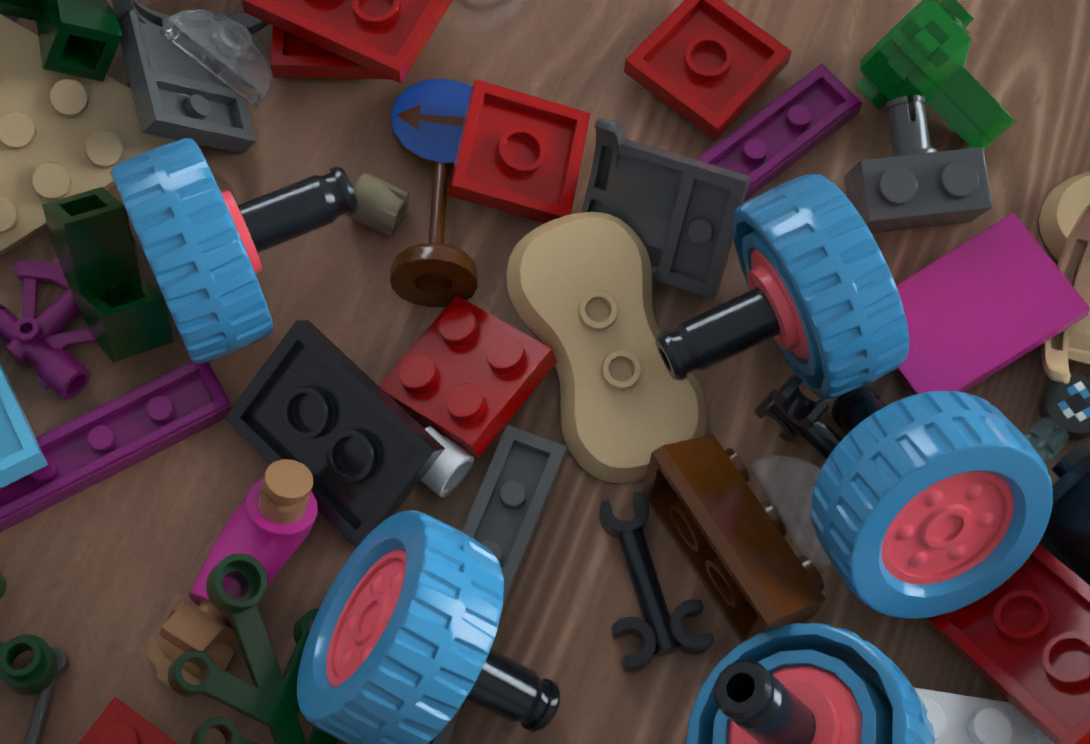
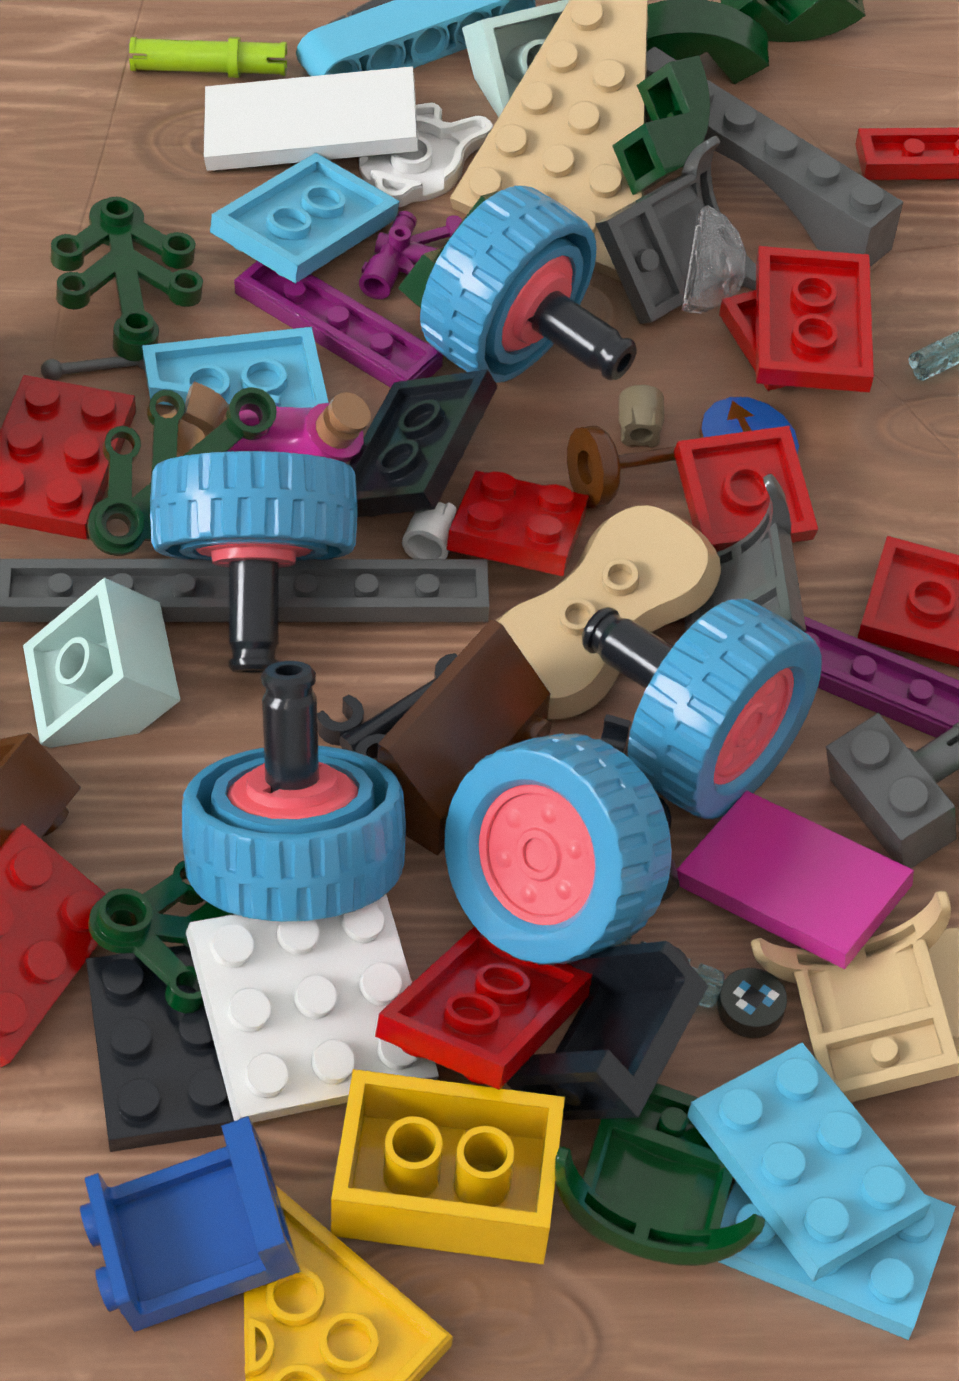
camera: 65 degrees right, 15 degrees down
(137, 570) = (275, 361): none -> medium azure wing

